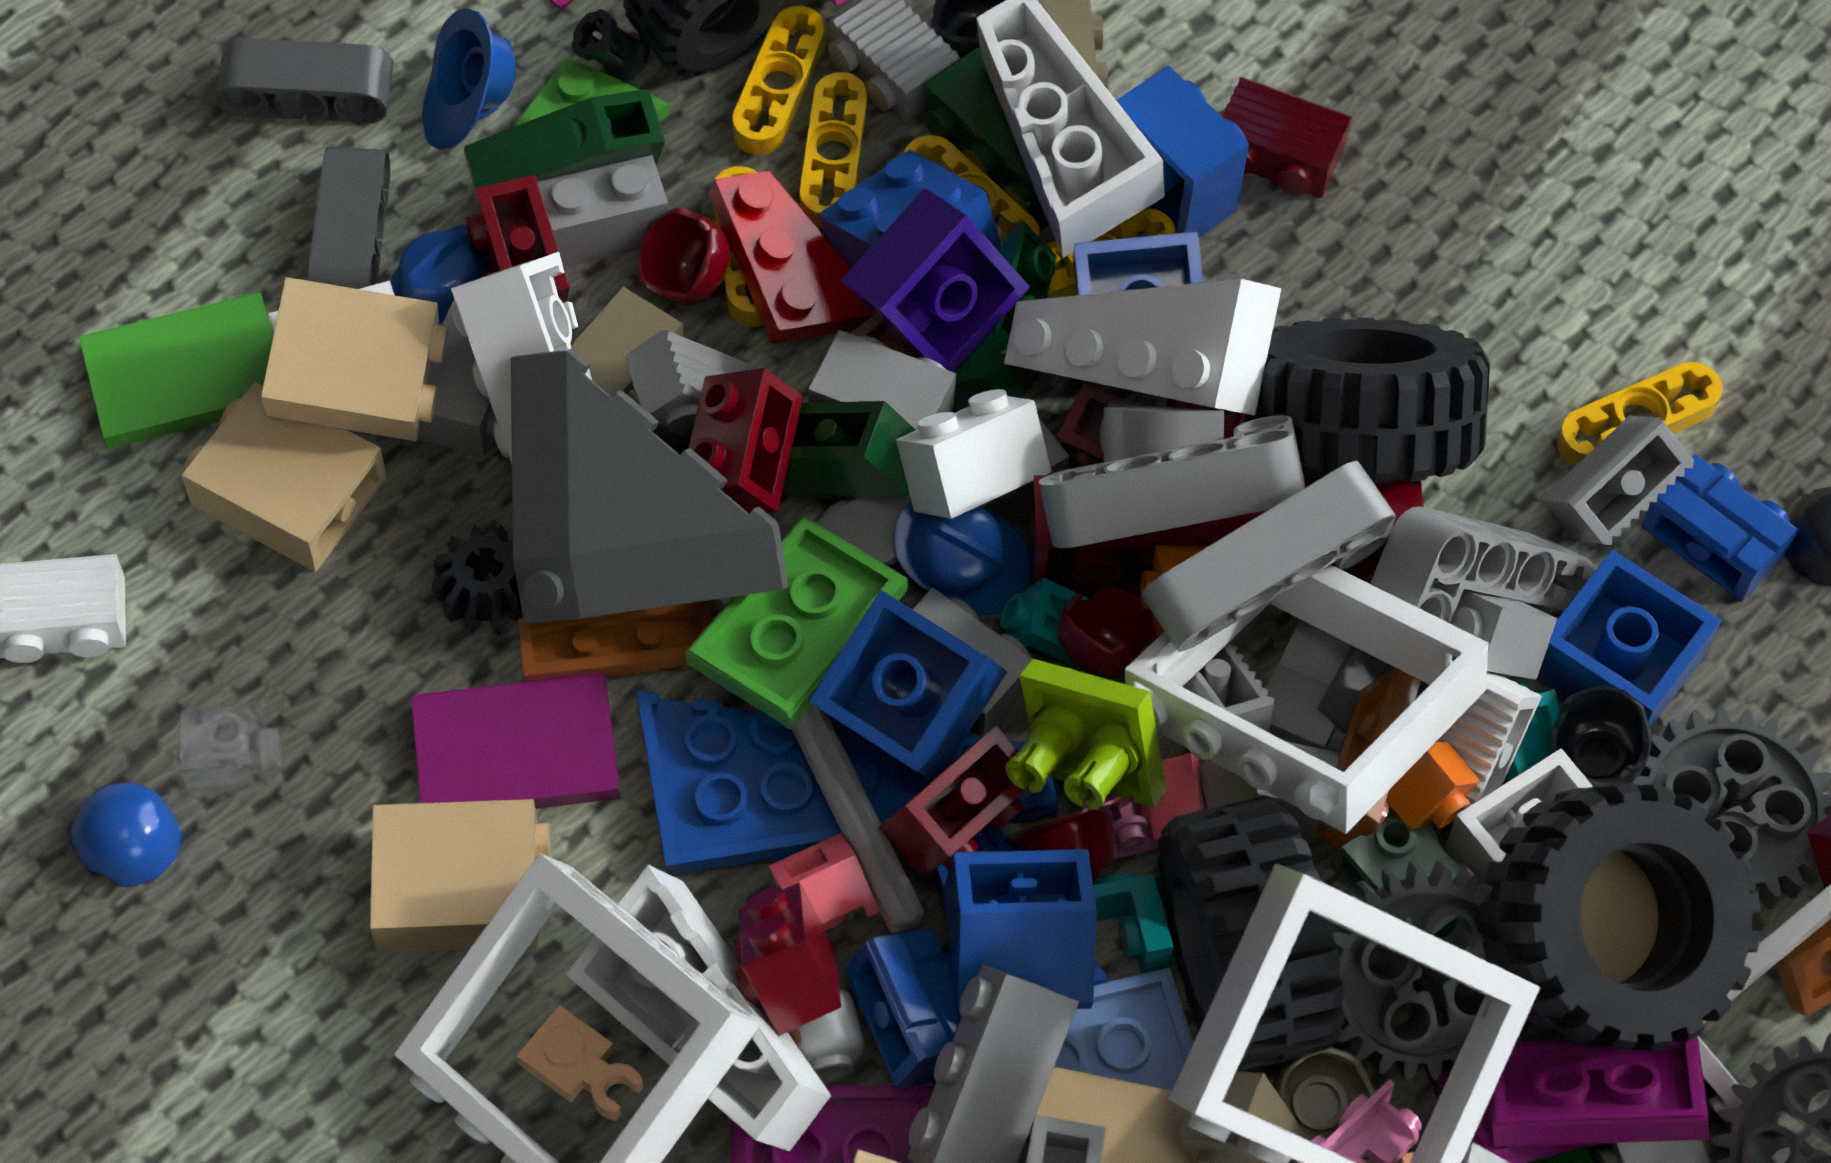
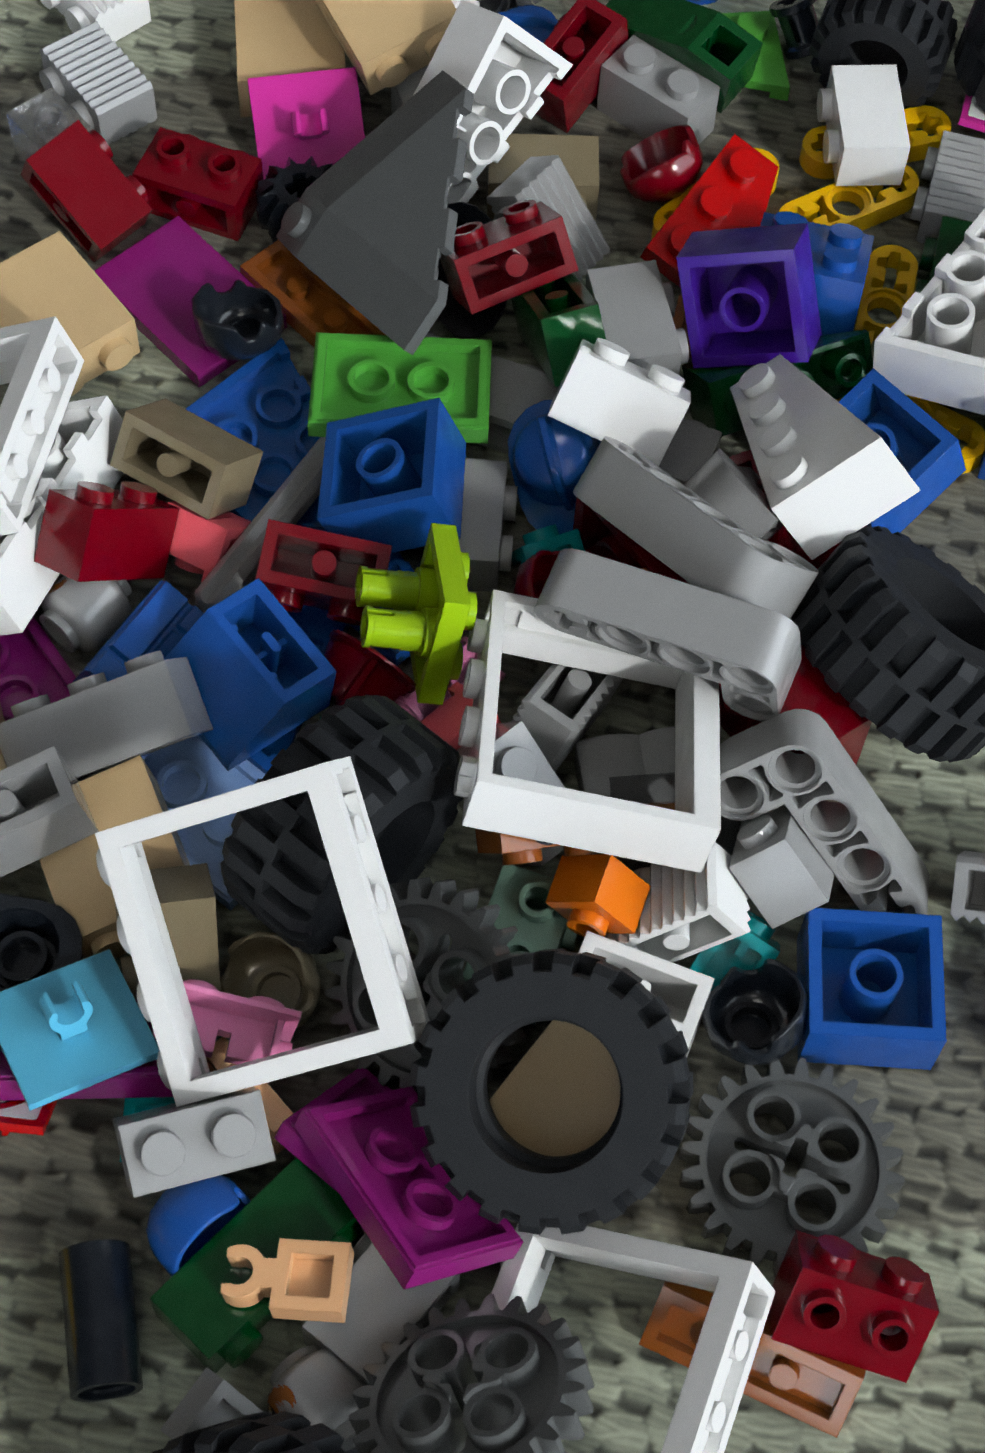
camera: 55 degrees right, 0 degrees up
(184, 668) = (99, 82): none -> light grey brick
(341, 753) = (87, 190): none -> dark red brick
(391, 652) = (200, 182): none -> dark red brick
(400, 517) = (306, 116): none -> dark pink piece
(604, 711) = (237, 321): none -> black hair
(748, 843) = (186, 458): none -> dark tan brick
(780, 74) = (864, 125): none -> white brick

